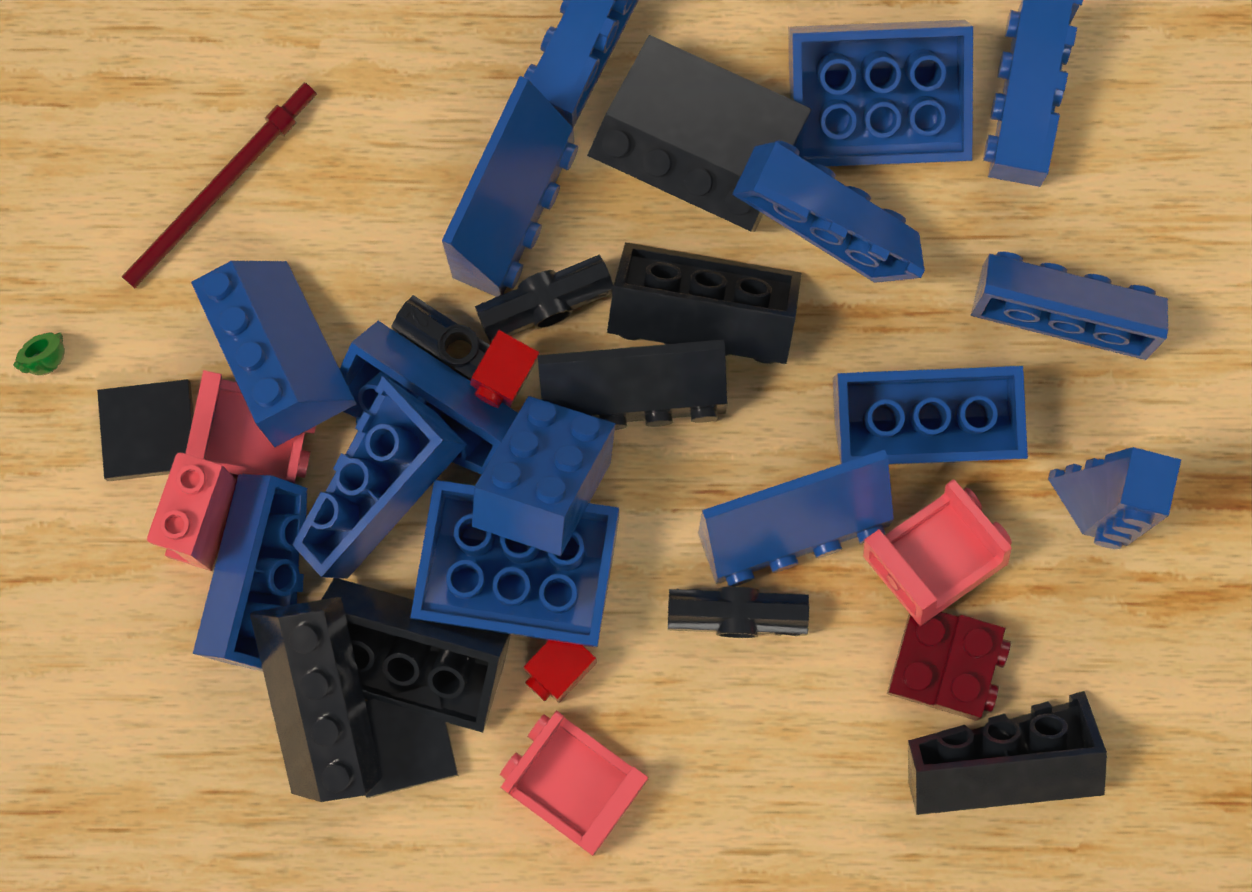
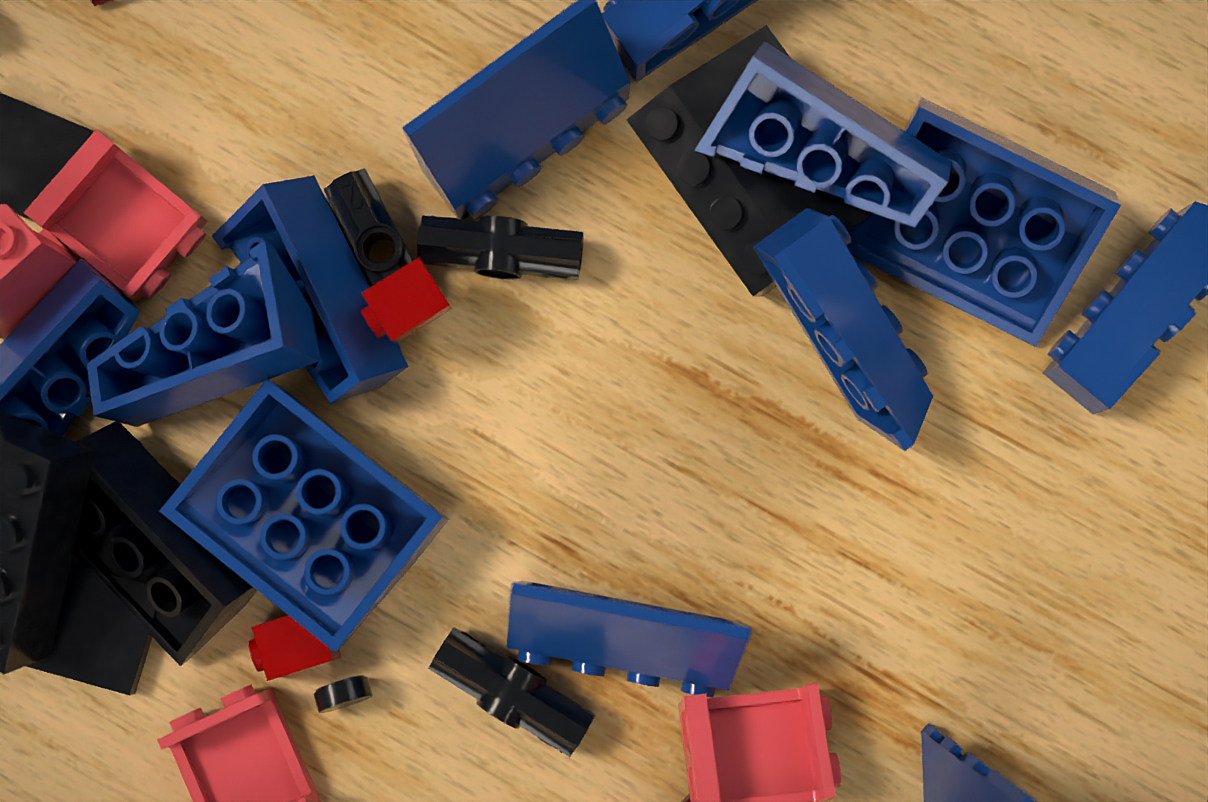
camera: 30 degrees right, 5 degrees up
(273, 347) = (183, 144): blue slope -> none
(543, 475) = (376, 440): blue brick -> none
(615, 683) = (342, 693): none -> black tile
(639, 382) = (534, 391): black slope -> none
(704, 298) = (663, 343): black slope -> none
(738, 92) = (824, 140): none -> blue wedge
(932, 414) = (832, 603): blue slope -> none
(1071, 306) = (1054, 566): blue slope -> none

